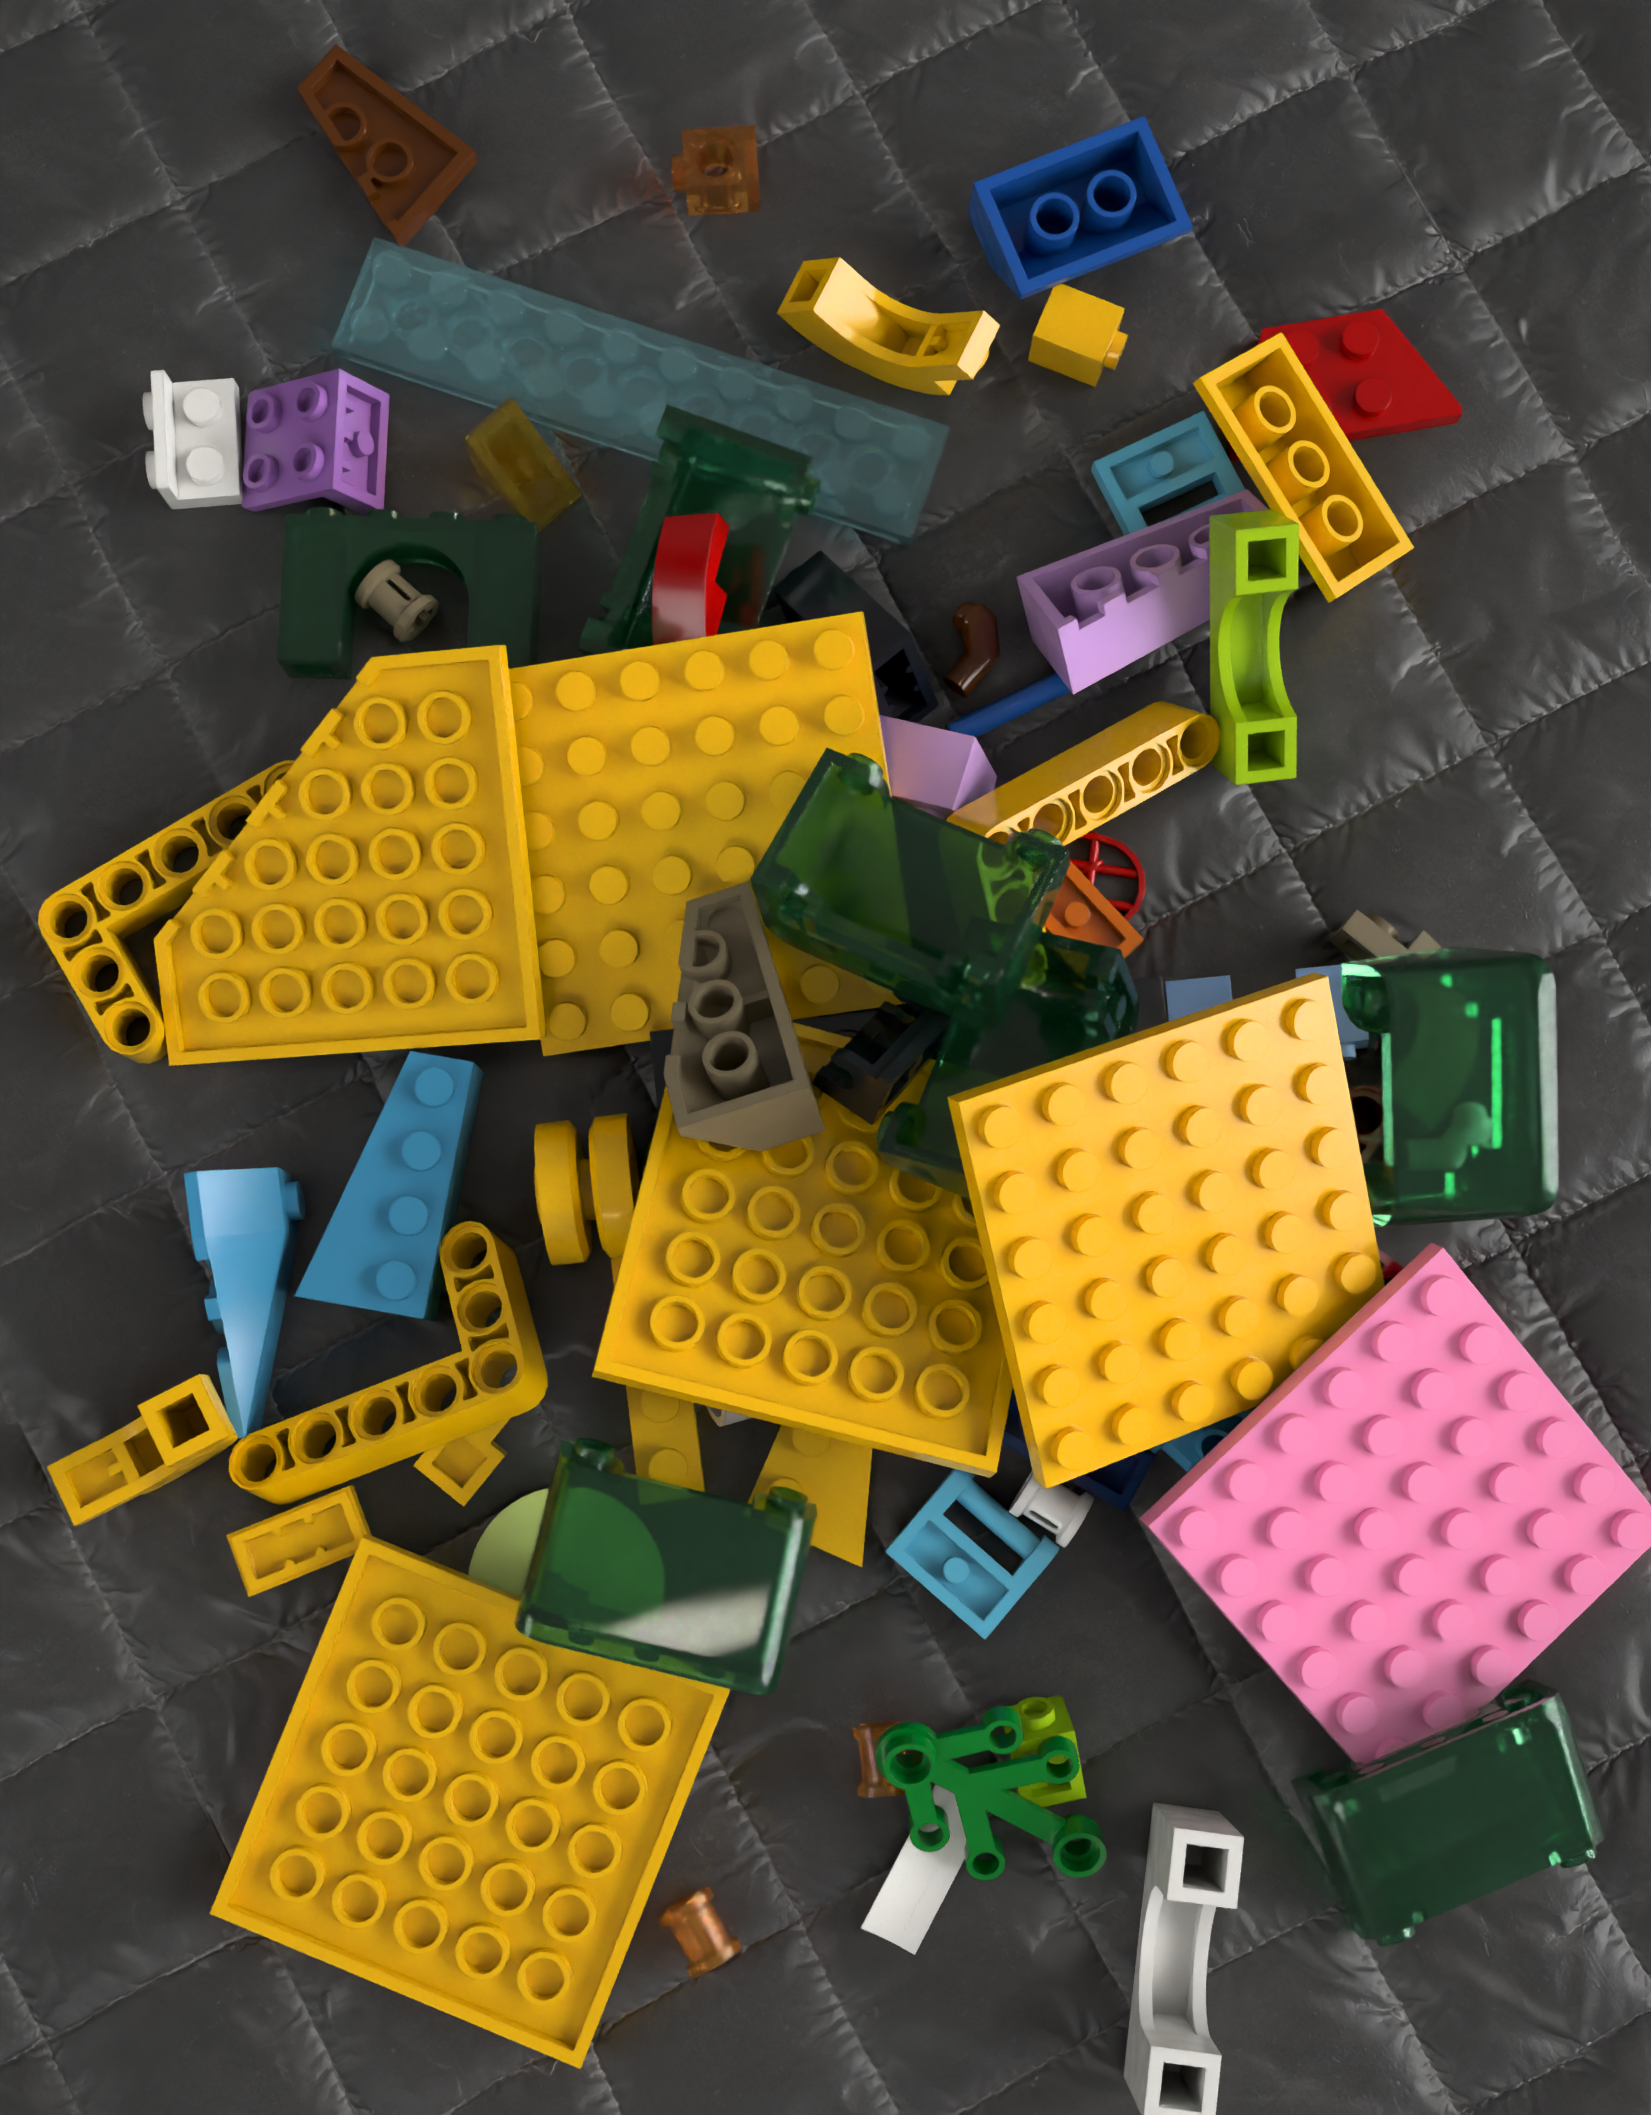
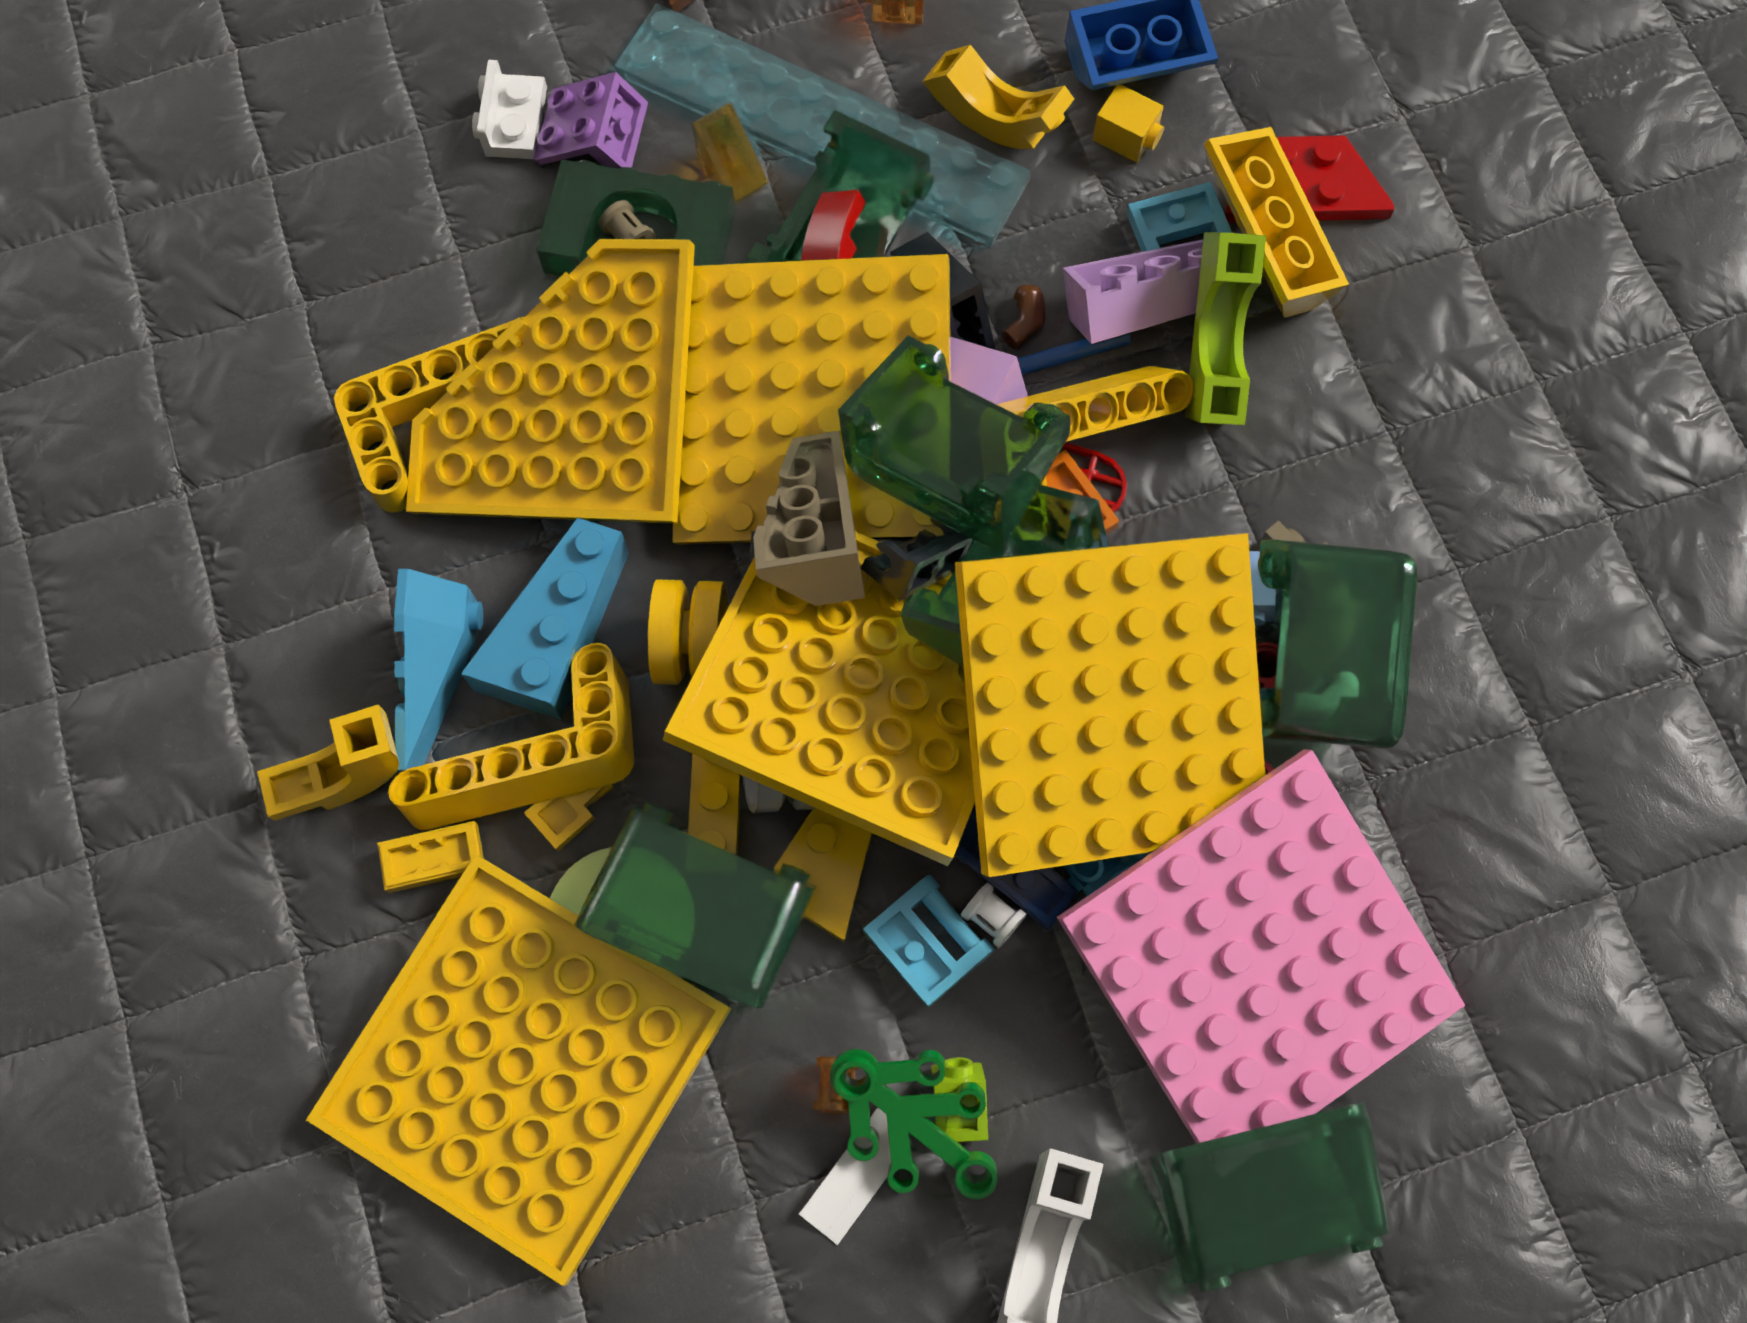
camera: 10 degrees right, 10 degrees down
(699, 1932) = (674, 1195): clear orange bush -> none

